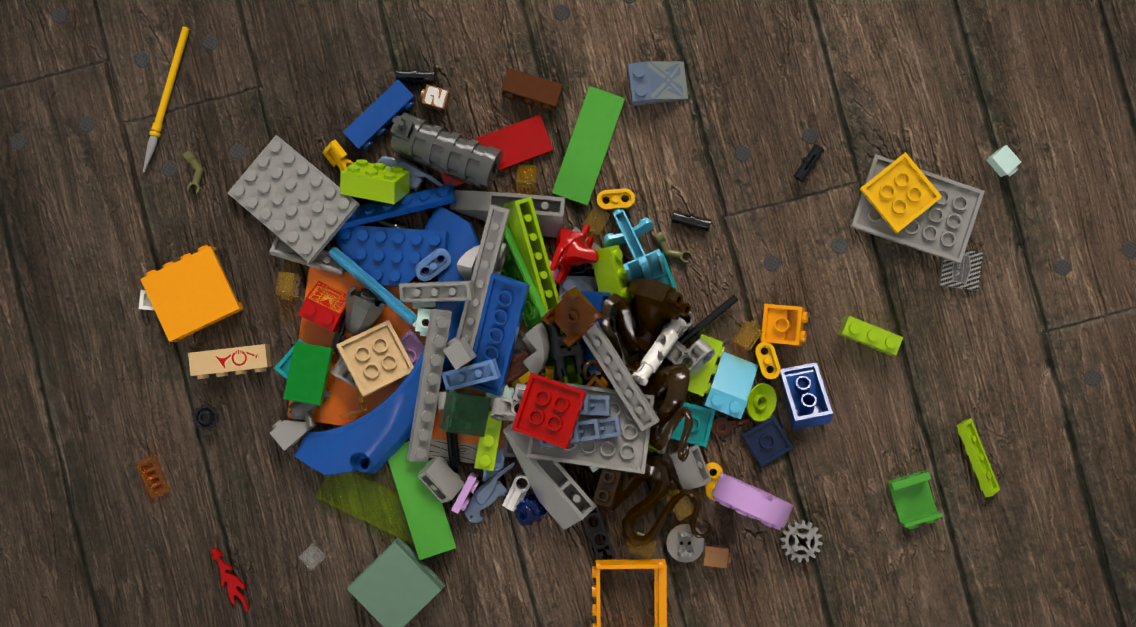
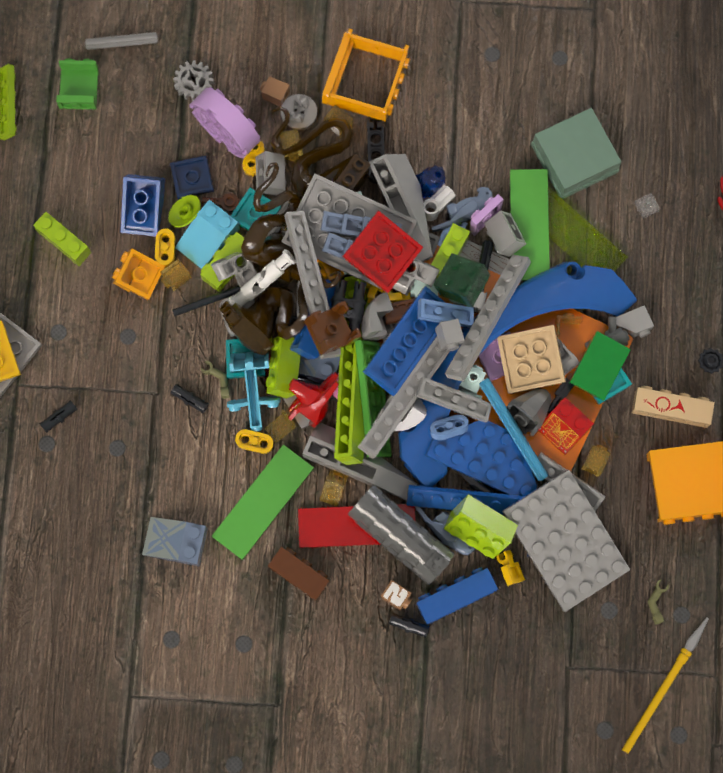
camera: 160 degrees left, 10 degrees down
(888, 560) = (120, 41): none -> light grey axle

